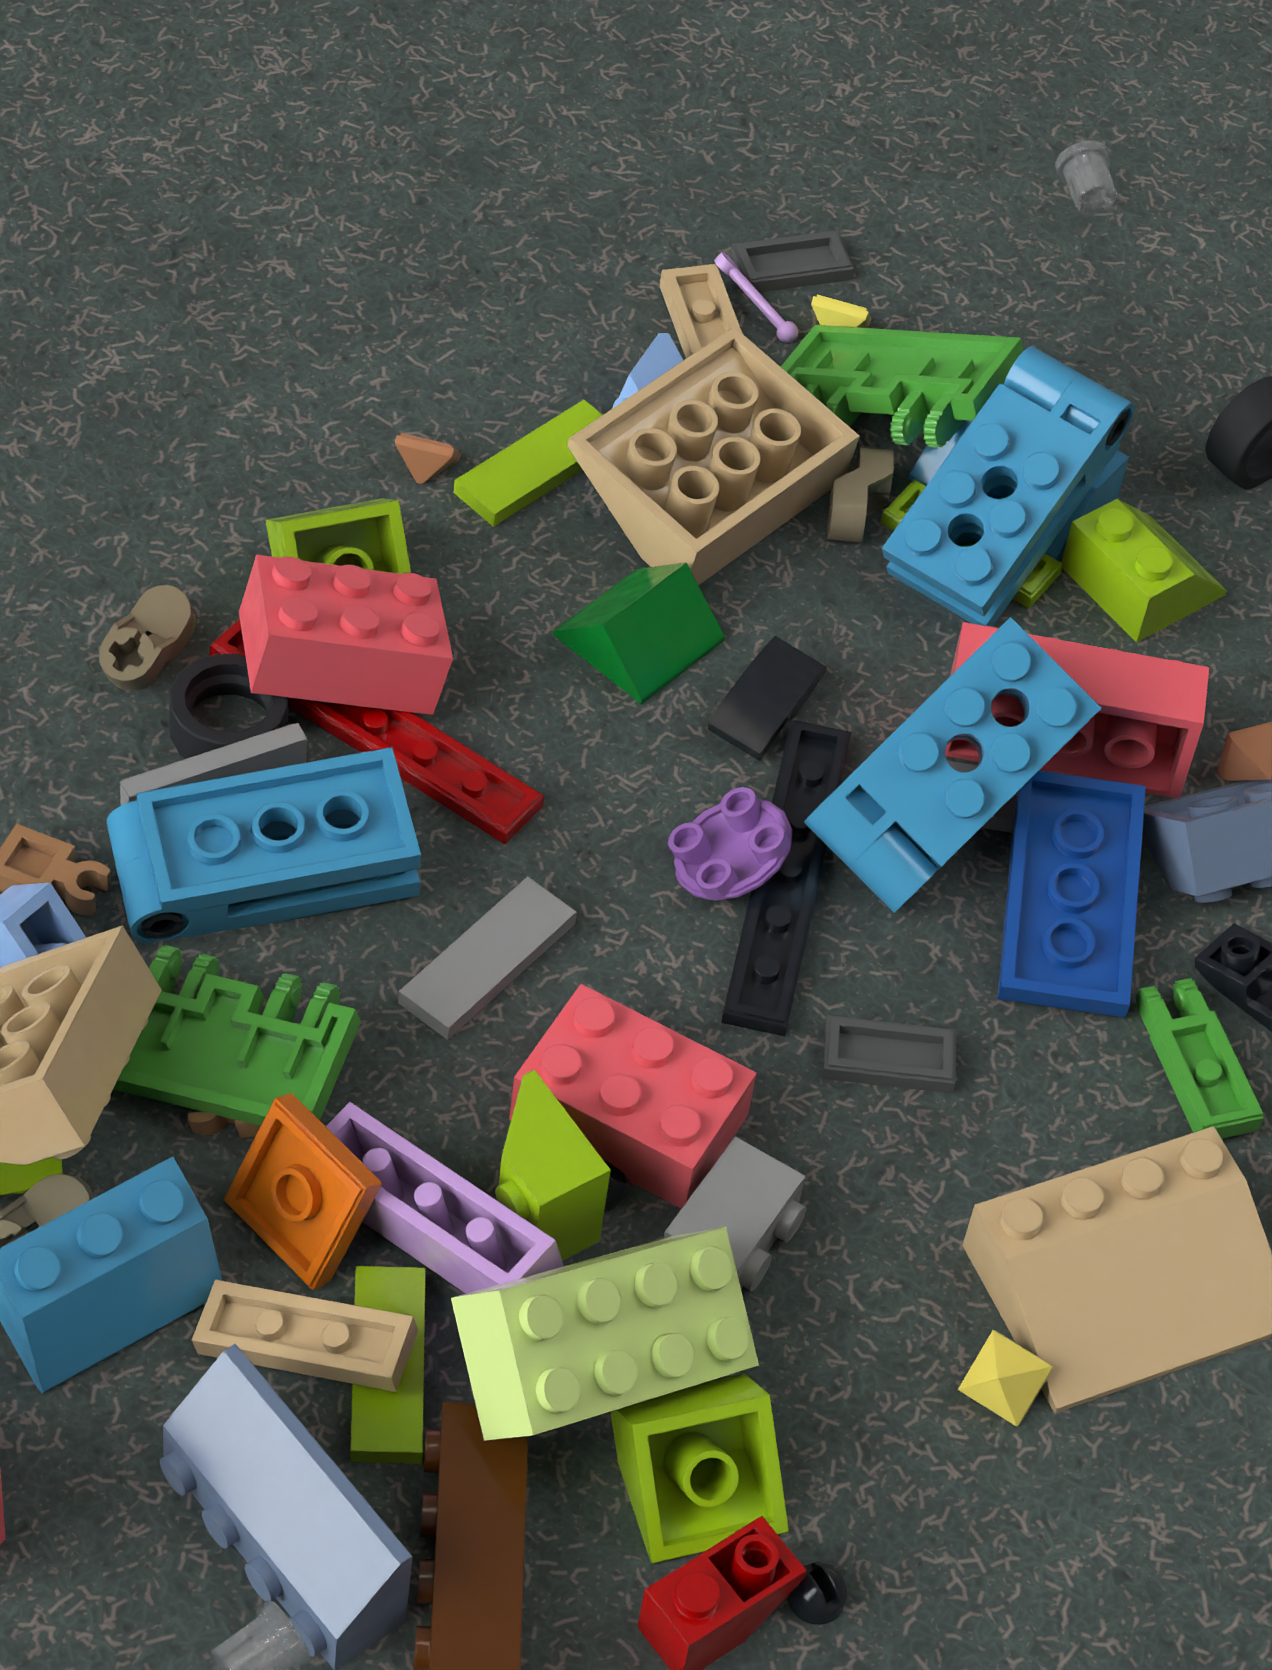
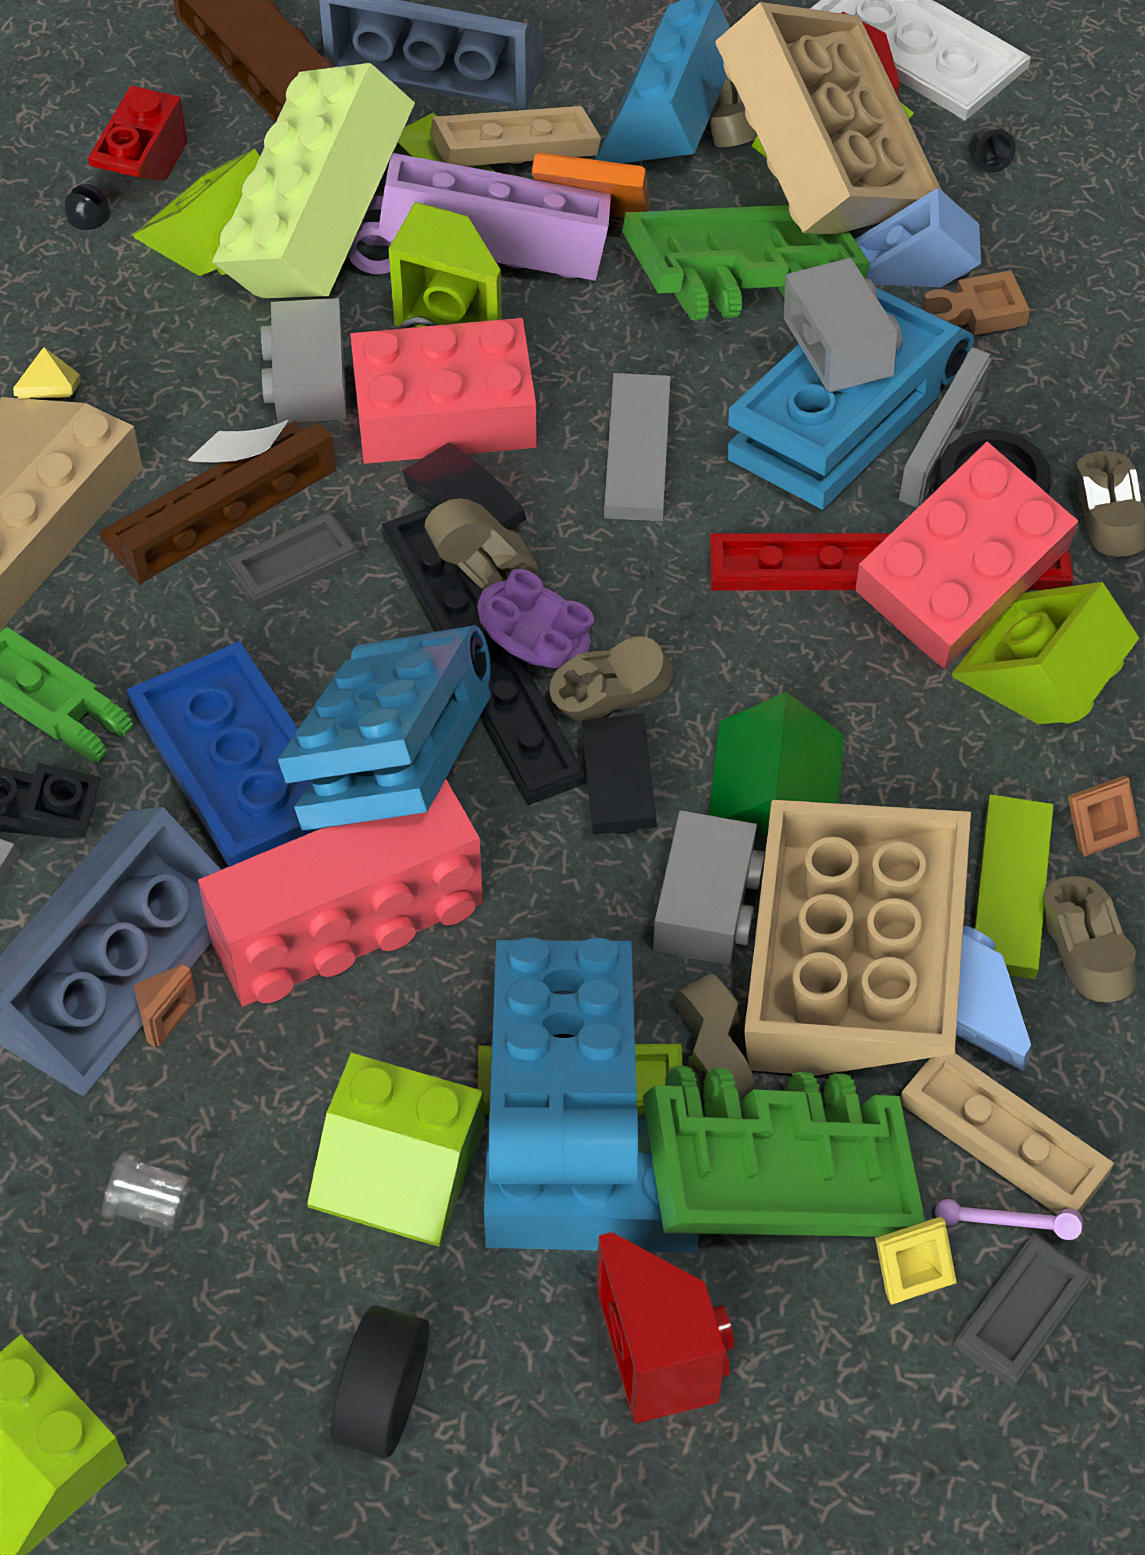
camera: 150 degrees right, 5 degrees up
(258, 831) = (841, 324): none -> light grey brick
(528, 389) = (1090, 939): none -> dark tan piece
(696, 989) = (453, 475): none -> black slope
(703, 768) = (611, 679): none -> dark tan piece
(737, 916) = (477, 542): none -> dark tan piece
(777, 579) = (706, 887): none -> light grey brick
(860, 1178) = (237, 445): none -> white sticker
(917, 1123) = (219, 501): none -> reddish brown fence
(1065, 316) = (661, 1331): none -> red slope

